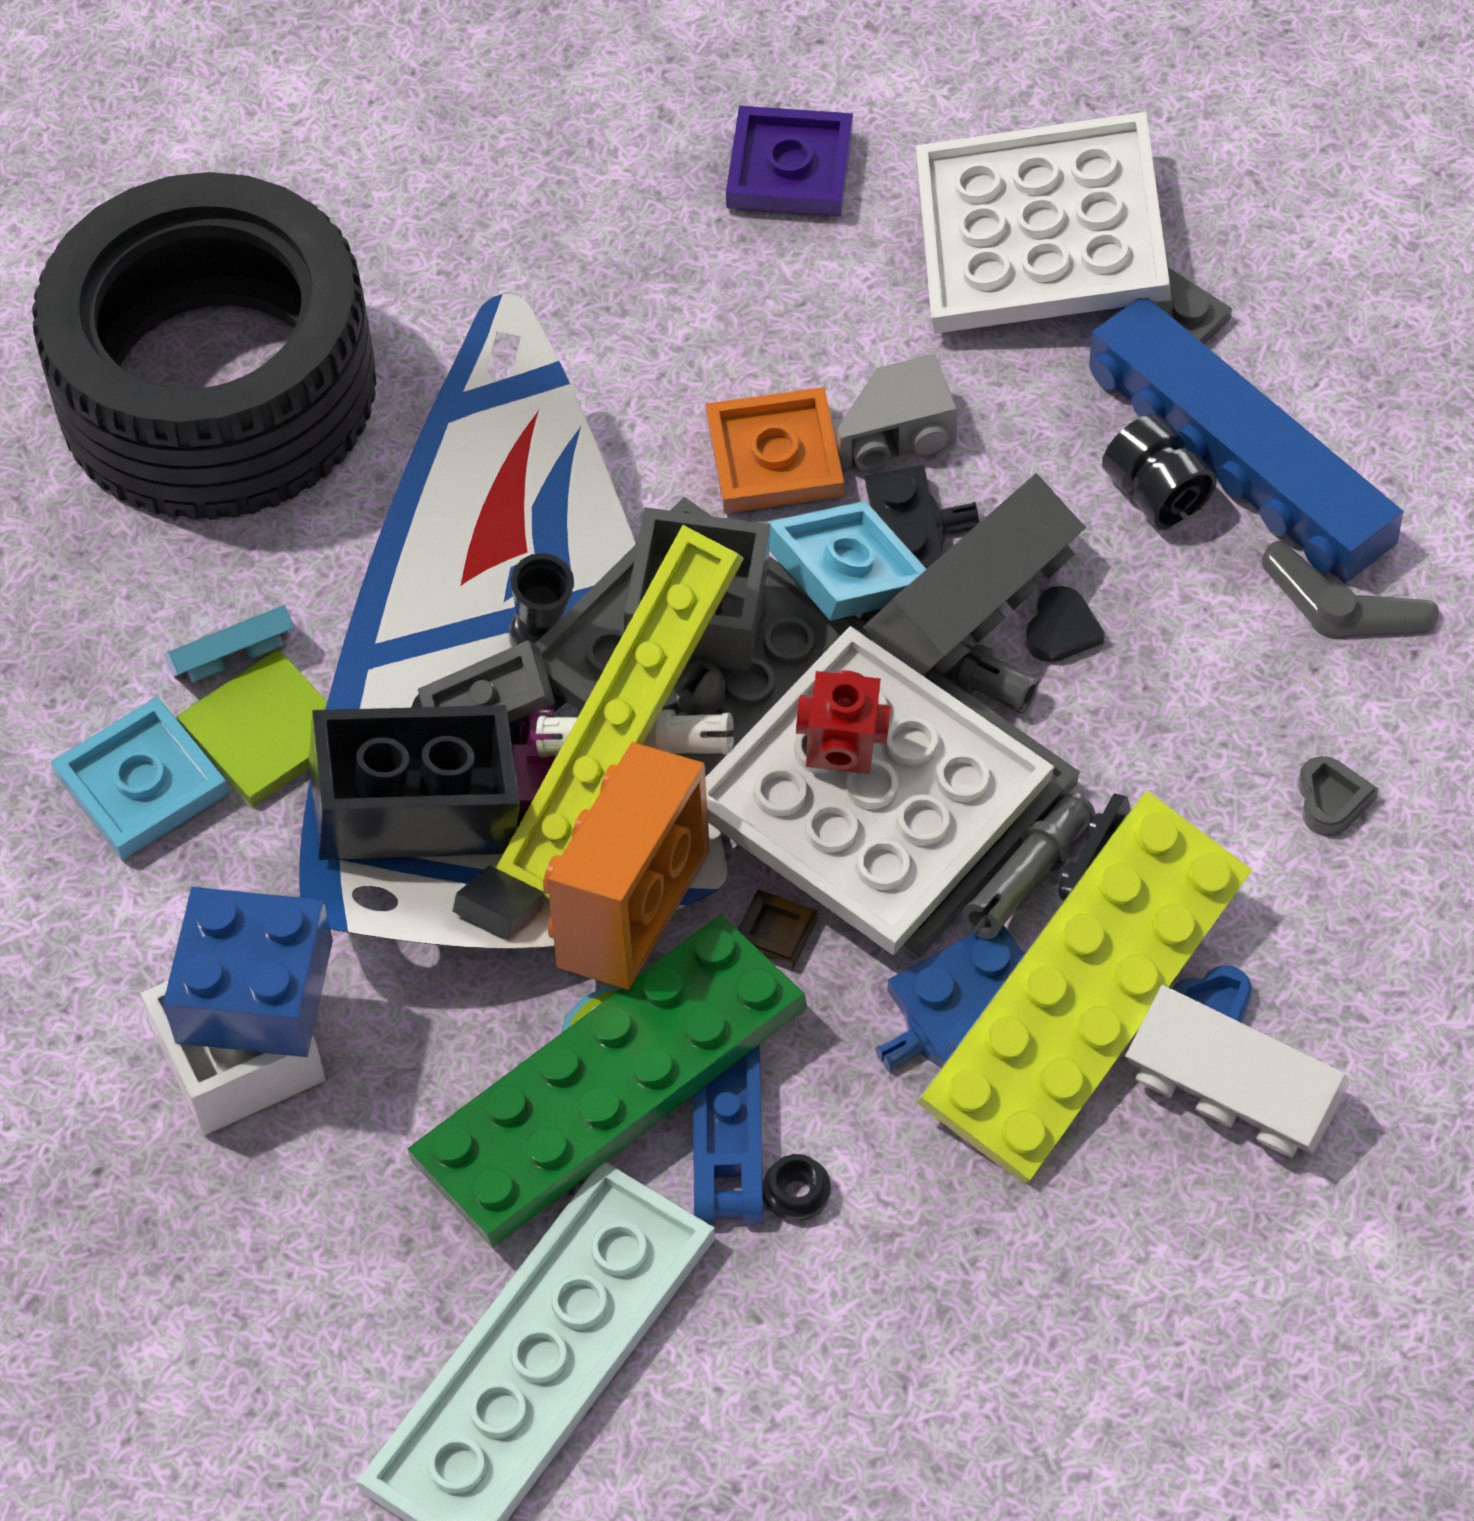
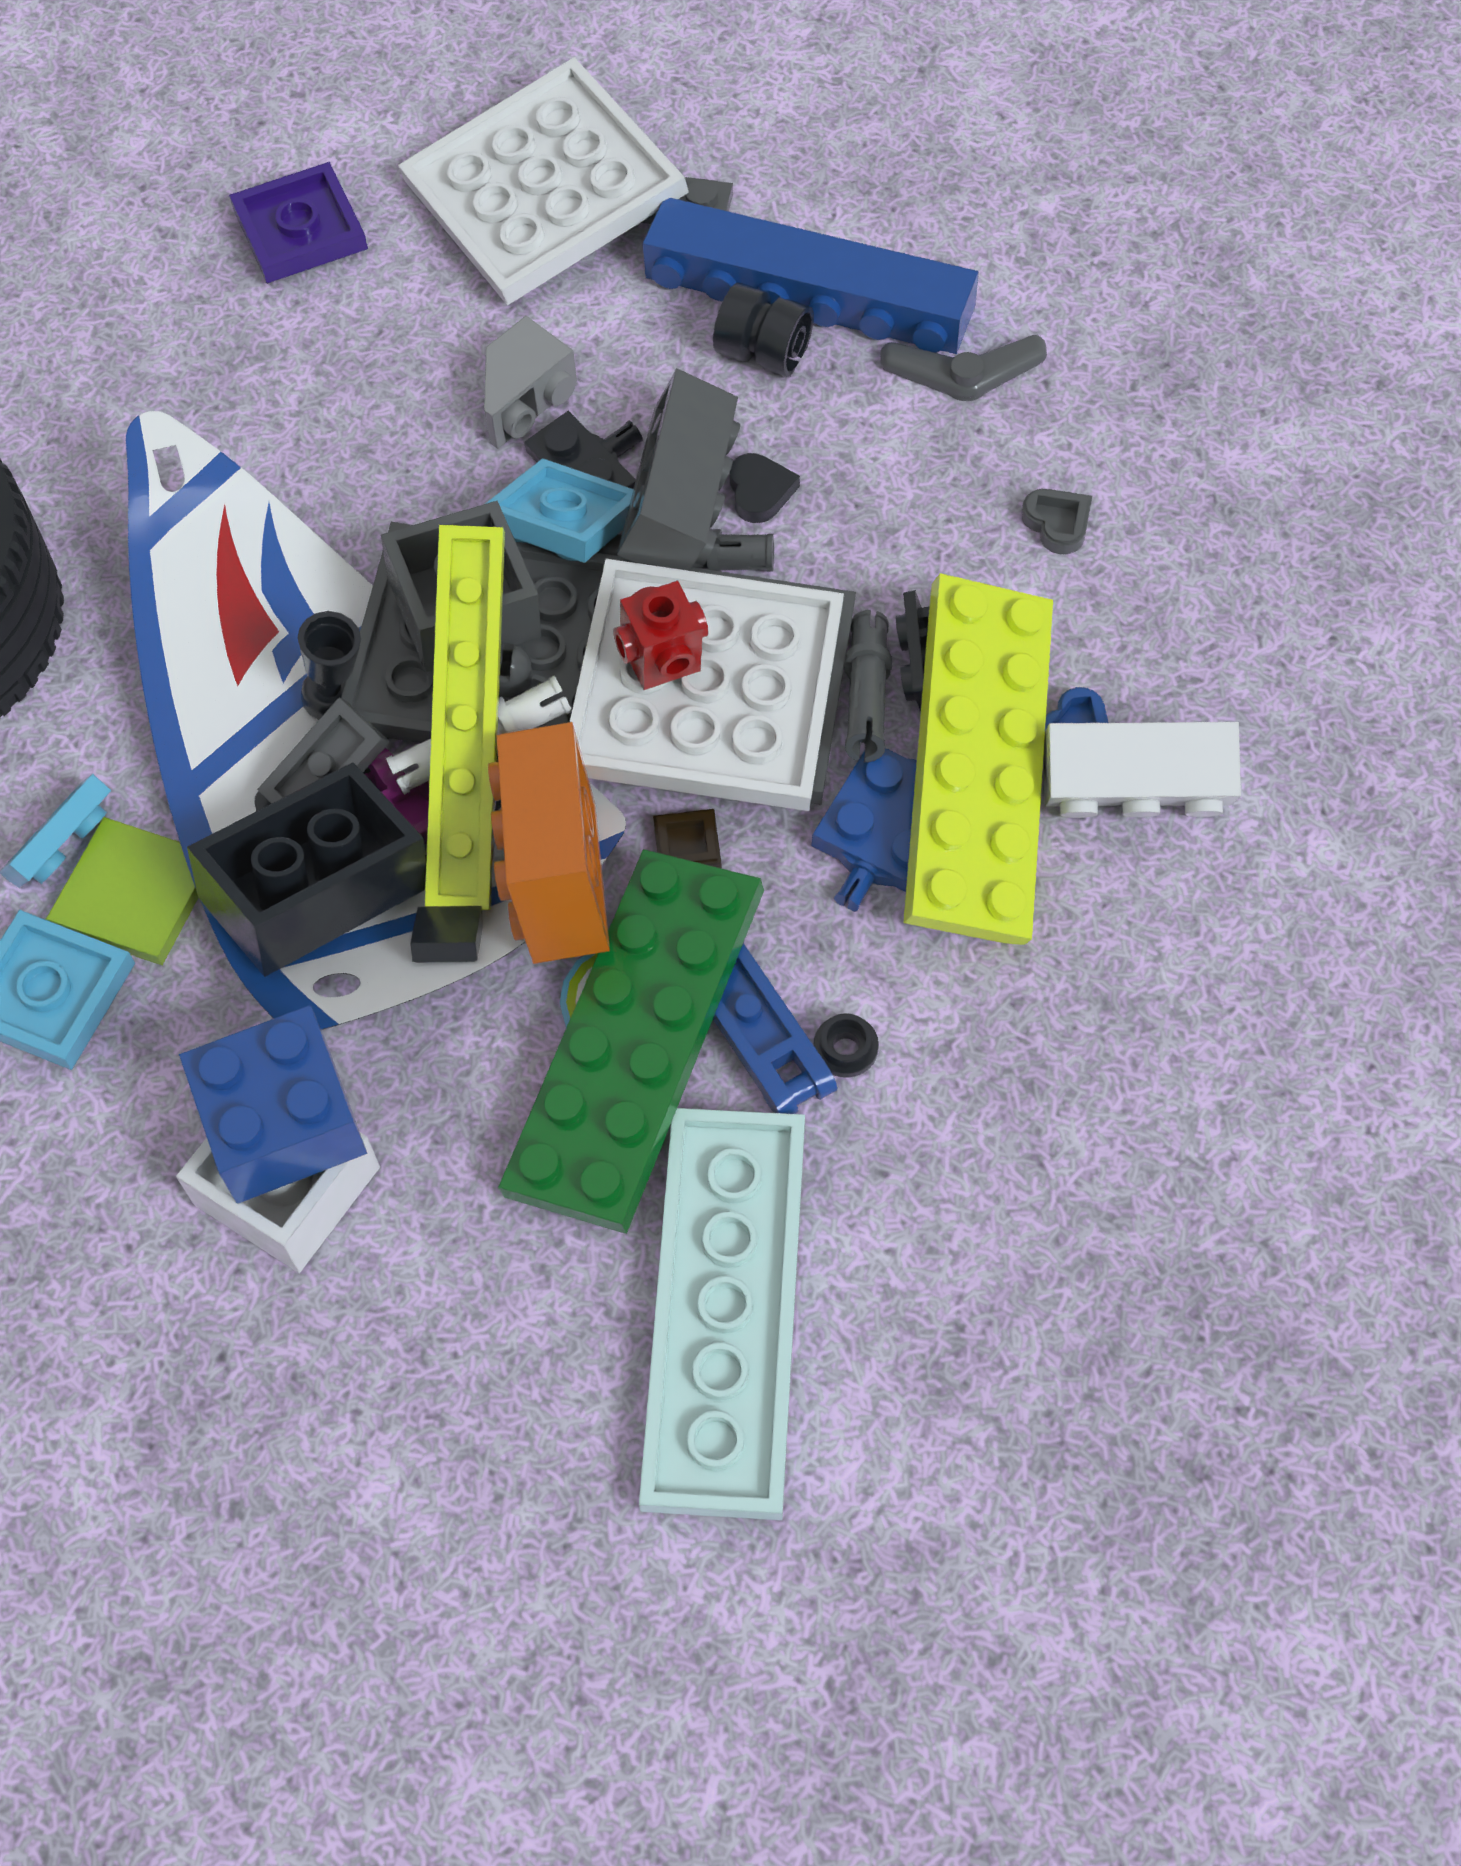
camera: 30 degrees left, 5 degrees up
(774, 450) = (435, 455): orange plate -> none

